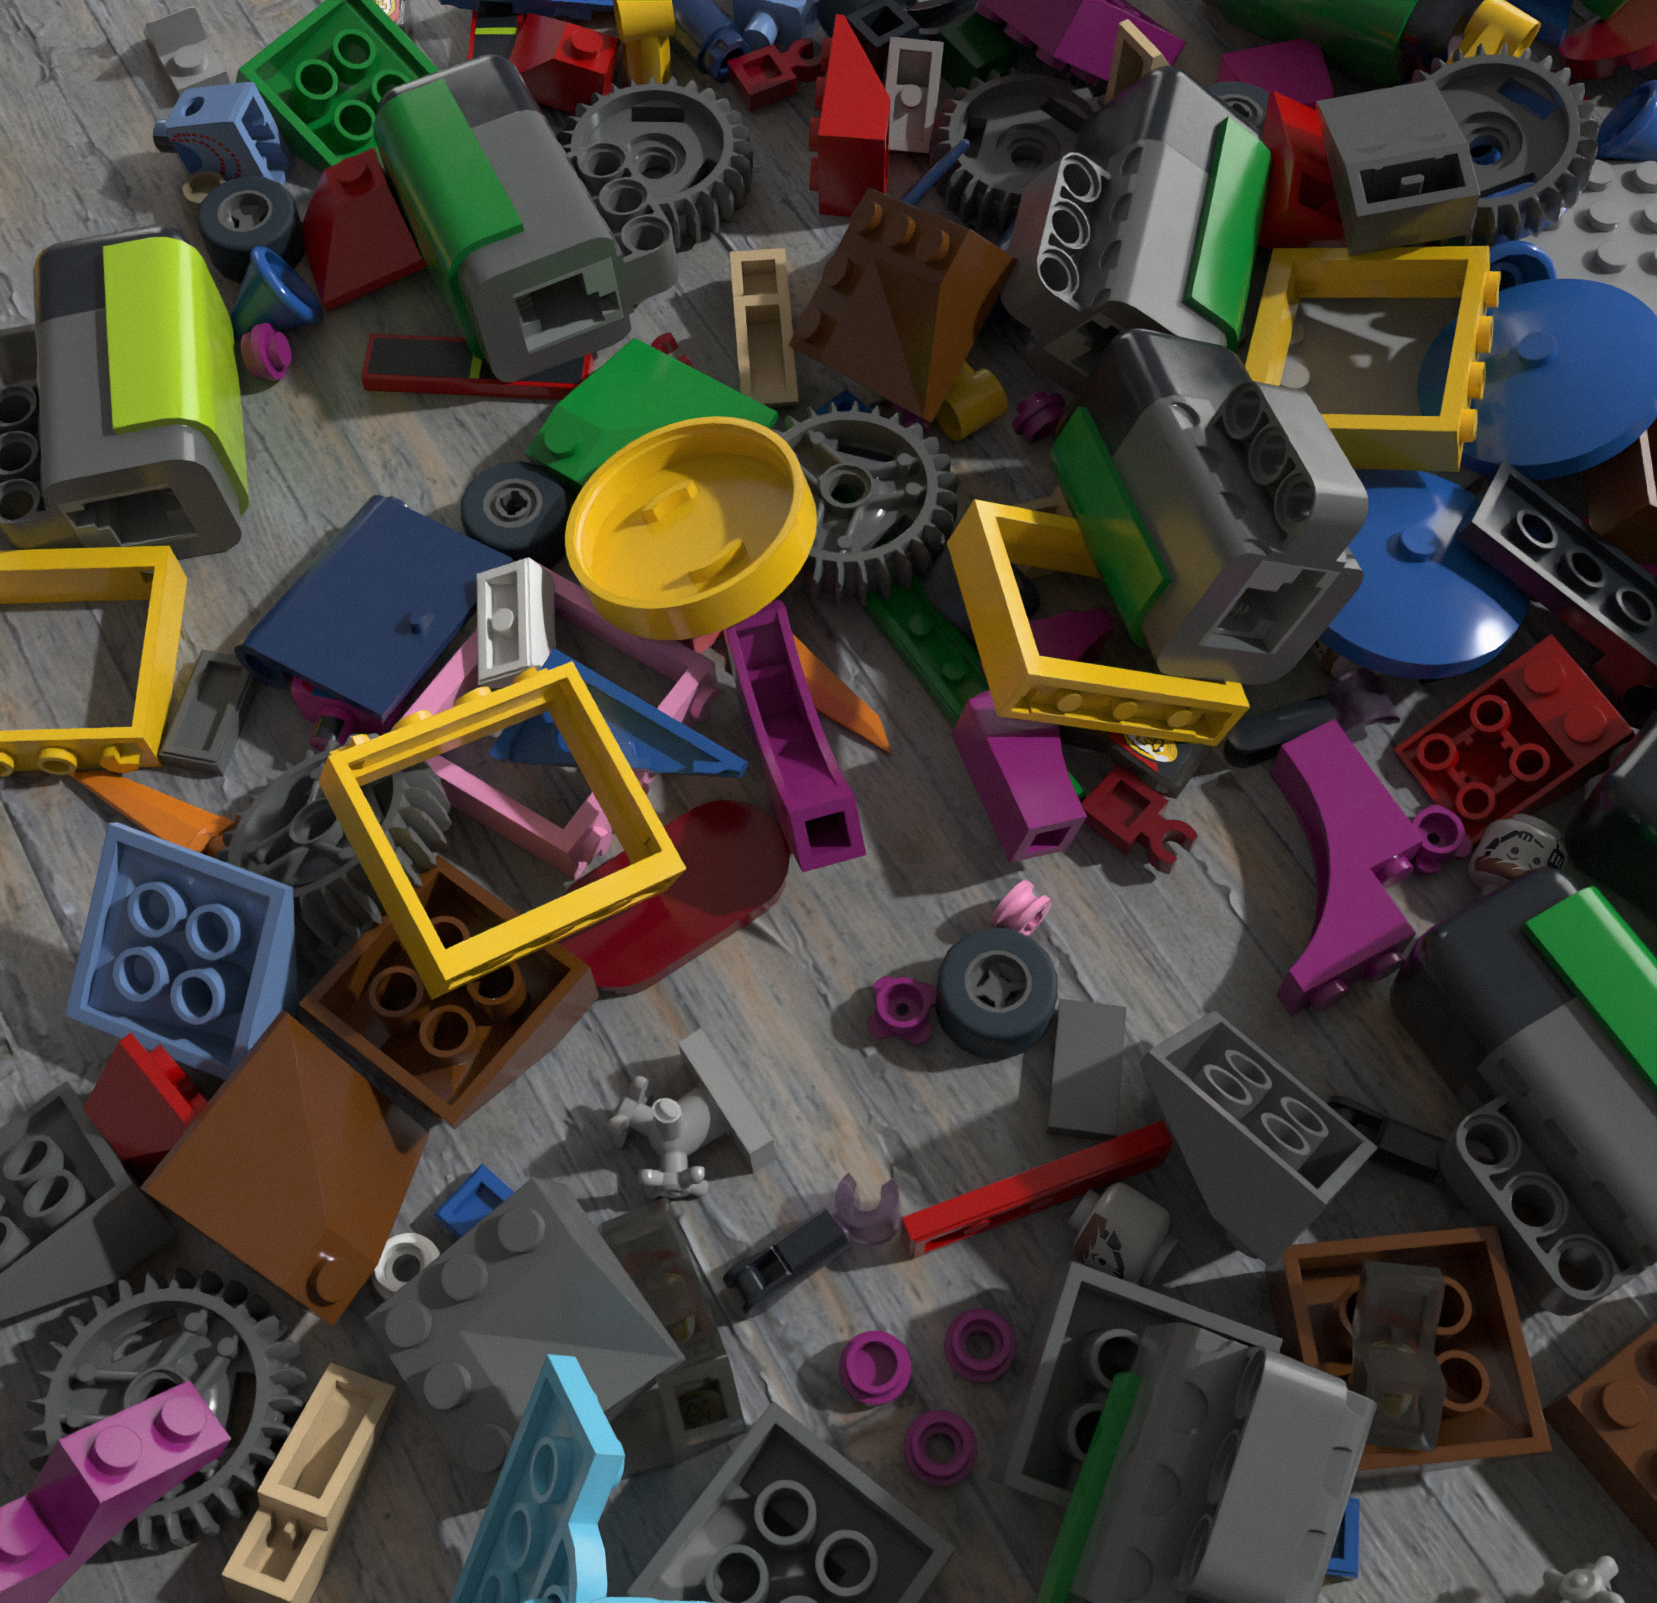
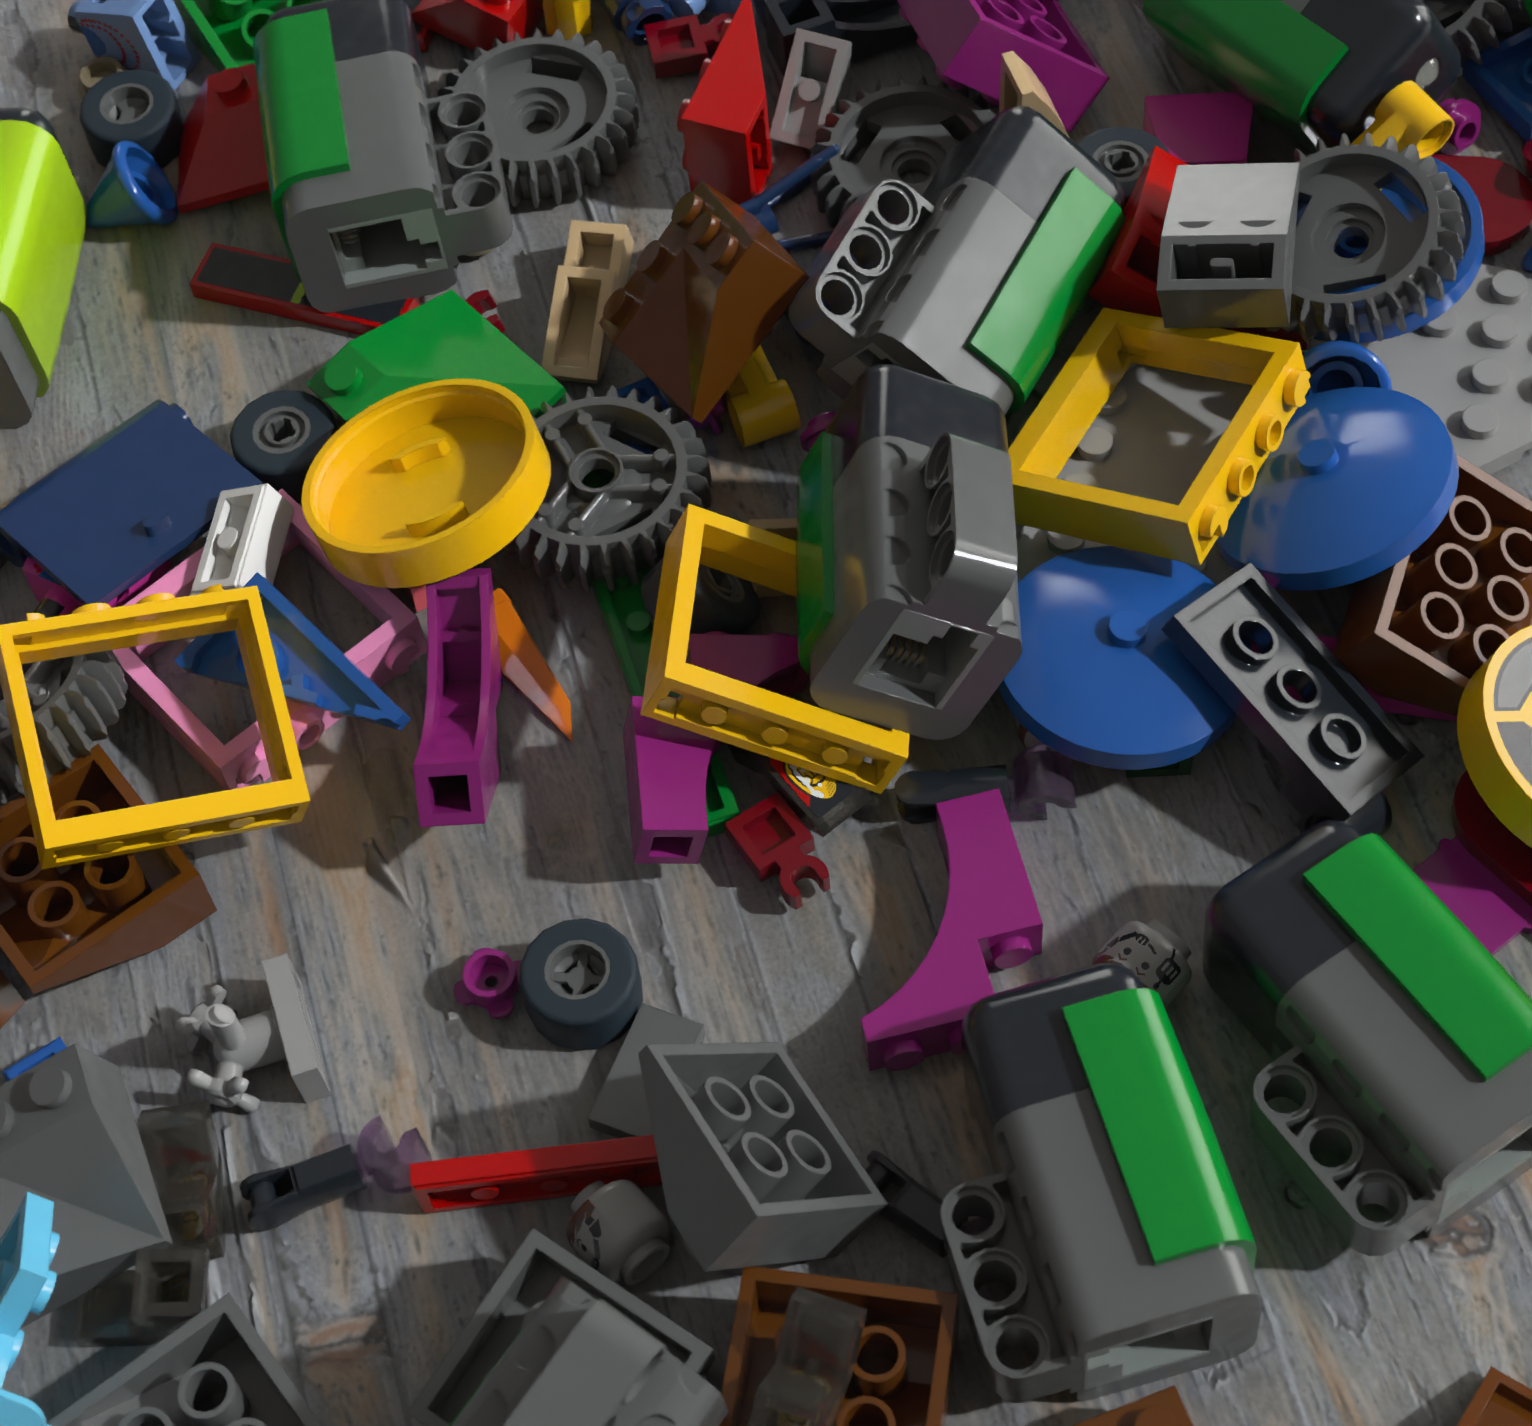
camera: 20 degrees right, 5 degrees down
(266, 352) = (108, 244): magenta plate -> none
(731, 877) = (355, 827): dark red tile -> none
(874, 1368) = (350, 1300): magenta plate -> none
(946, 1425) = (372, 1369): magenta plate -> none
(974, 49) = (893, 52): dark green brick -> none
(987, 1324) = (440, 1289): magenta plate -> none
(1021, 909) = (634, 912): bright pink bush -> none
(1451, 837) = (1076, 912): magenta plate -> none
(1516, 741) = (1181, 843): red slope -> none

